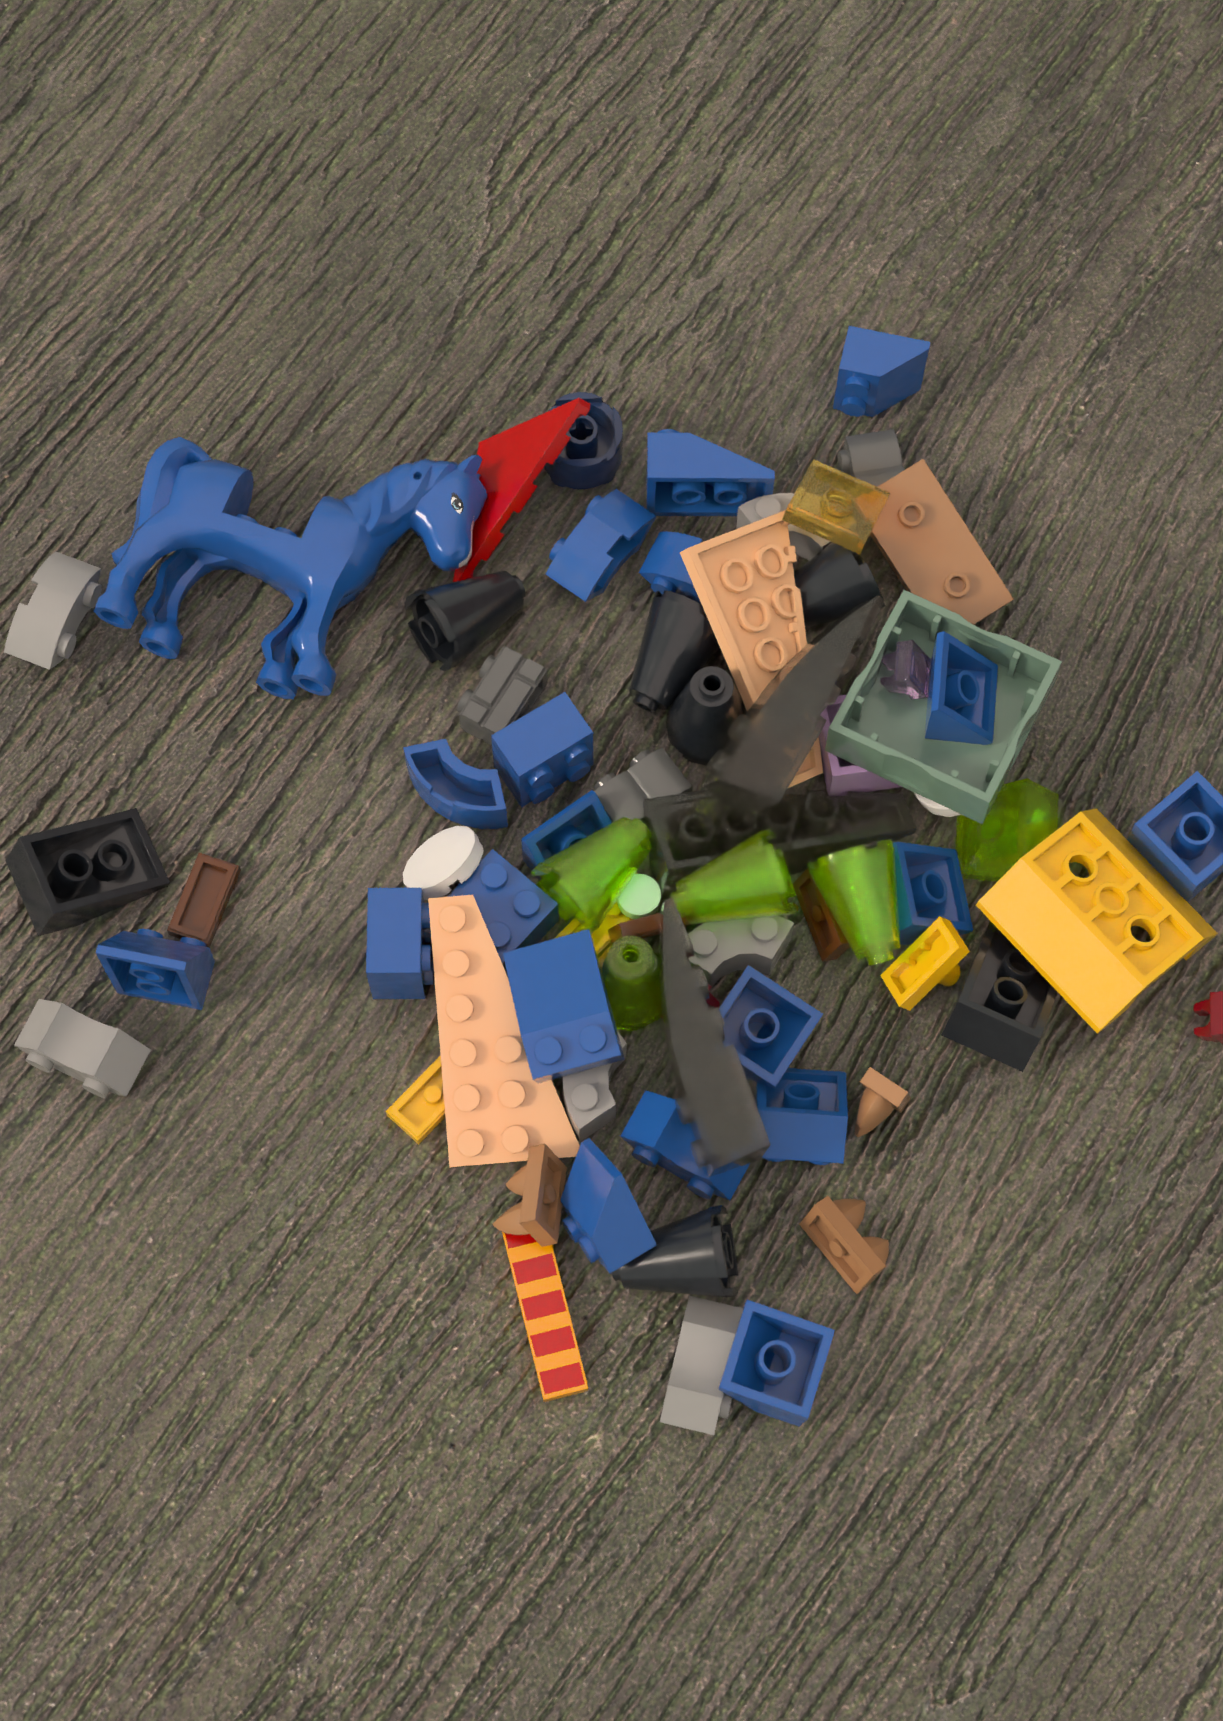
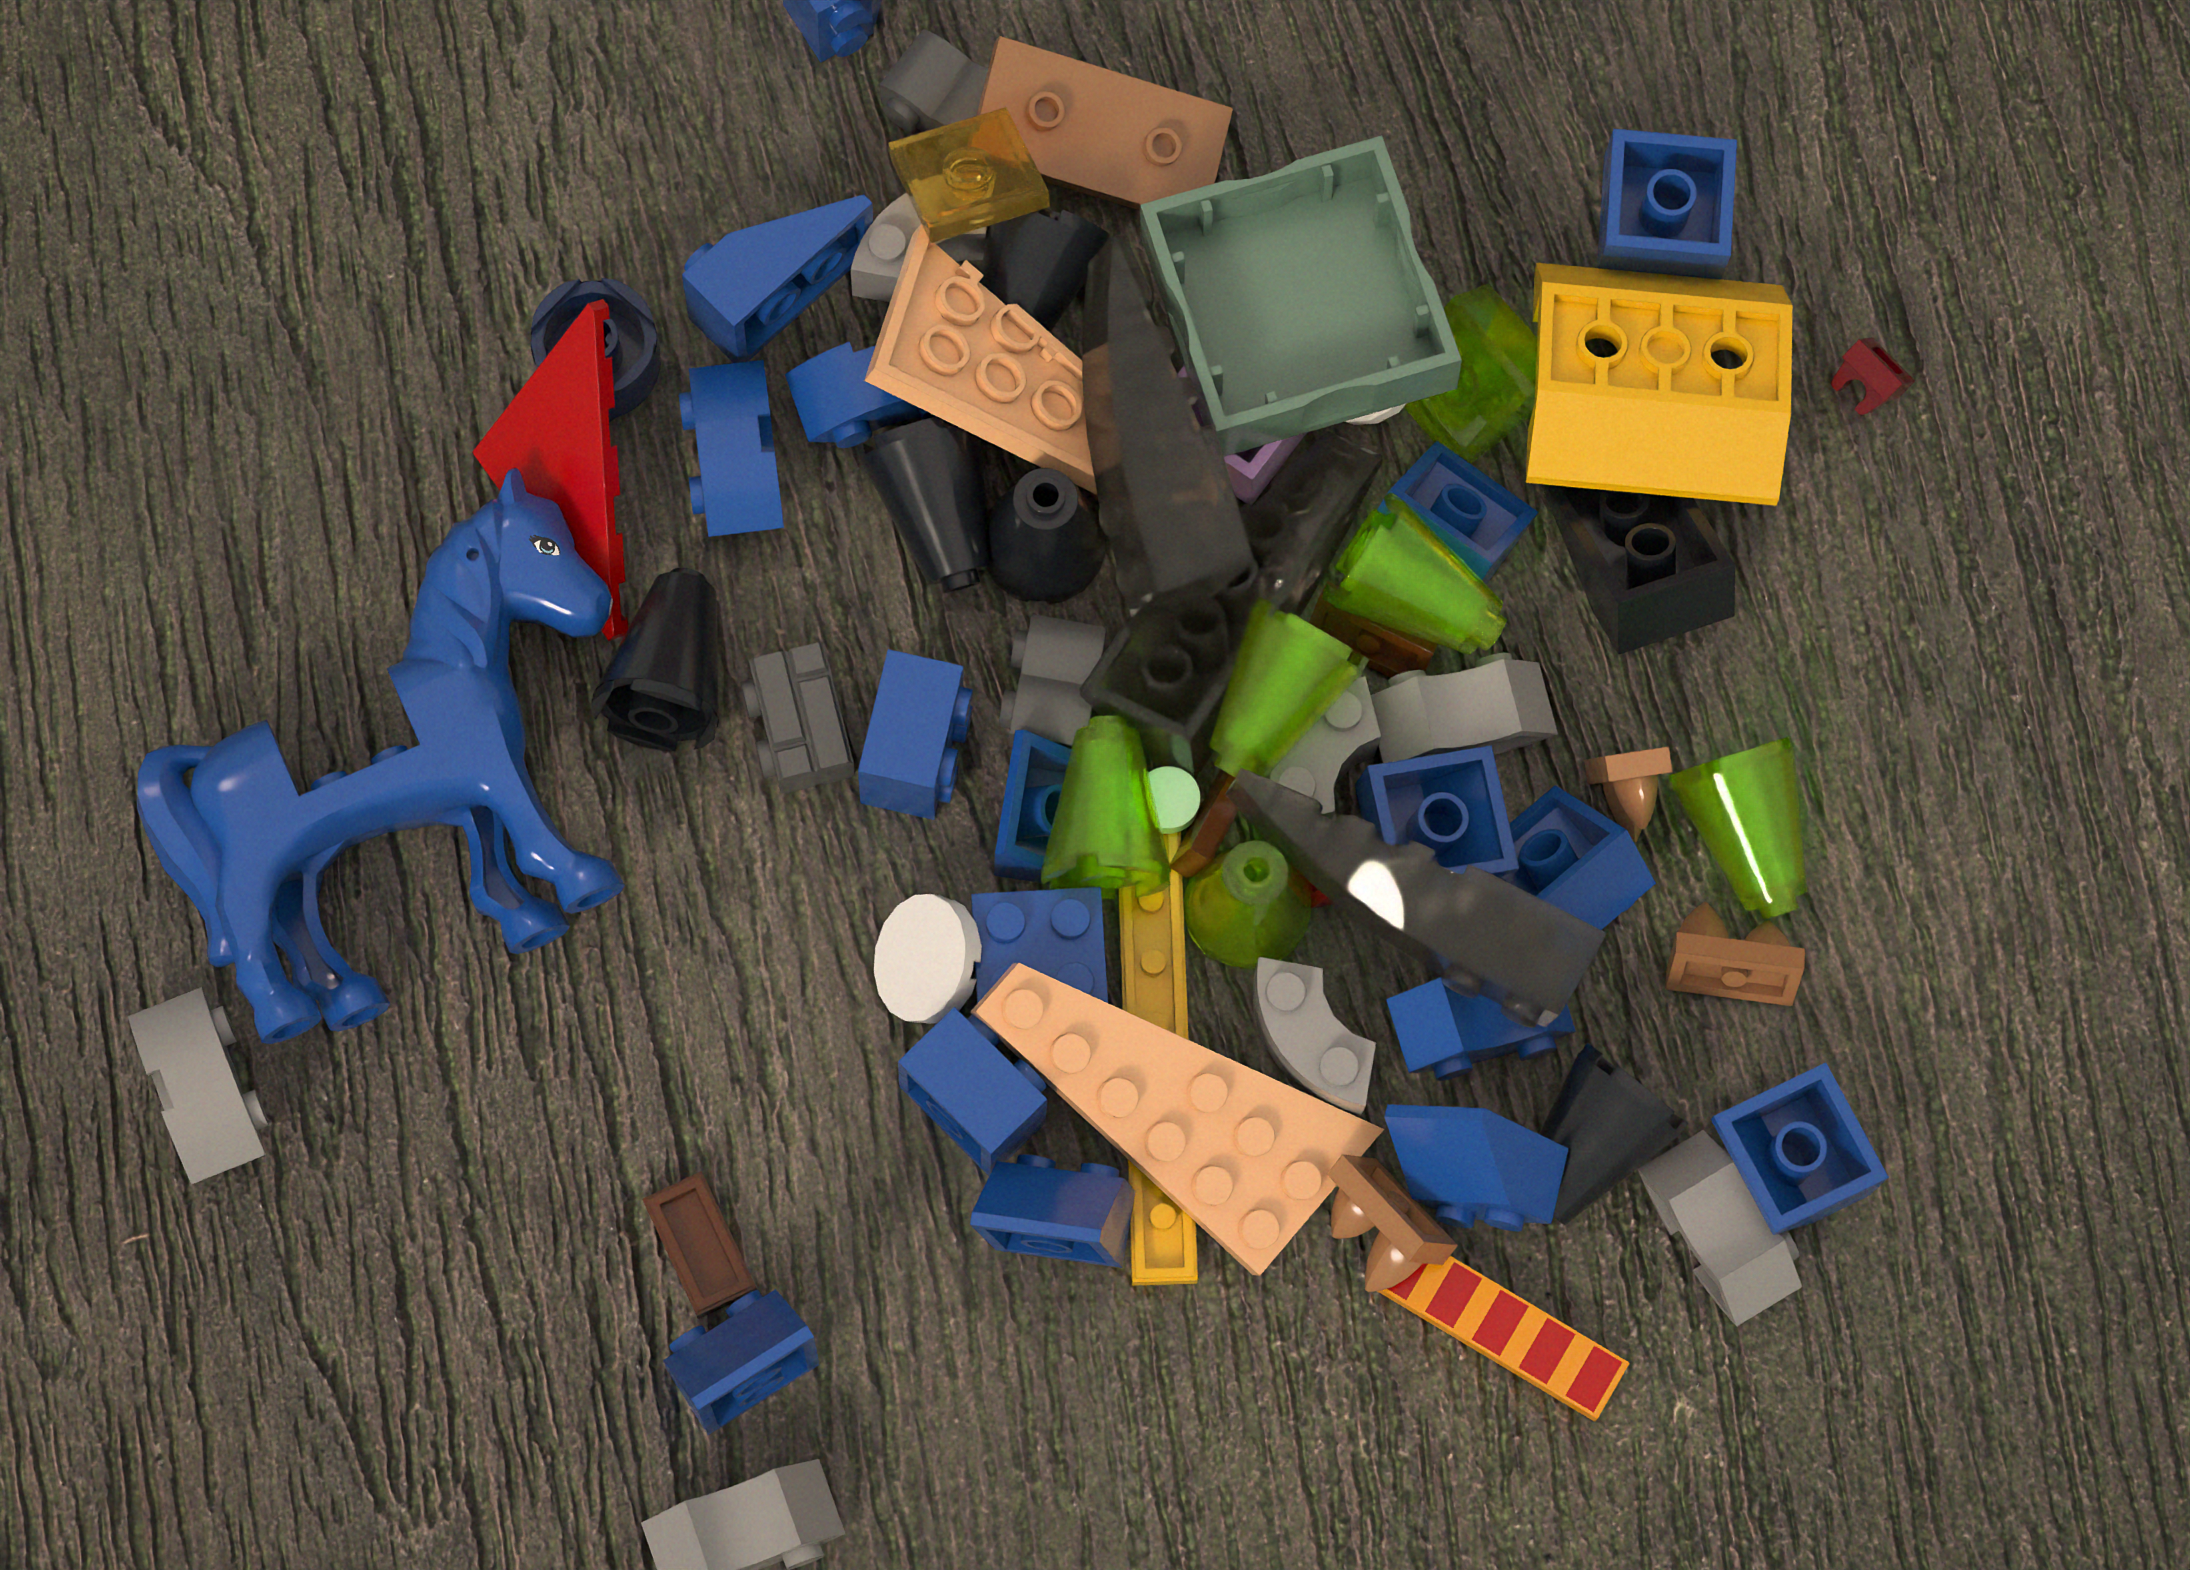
camera: 50 degrees left, 5 degrees up
(85, 870) = (540, 1336): black slope -> none
(378, 1037) = (1056, 1211): none -> blue slope
(456, 789) = (857, 864): blue brick -> none
(562, 1007) = (1230, 991): blue slope -> none
(849, 999) = (1492, 704): none -> light grey brick
(910, 669) = (1230, 289): clear purple tile -> none
(923, 1178) = (1751, 822): none -> clear neon green cone
(925, 963) = (1535, 592): yellow tile -> none
(960, 693) = (1301, 268): blue slope -> none

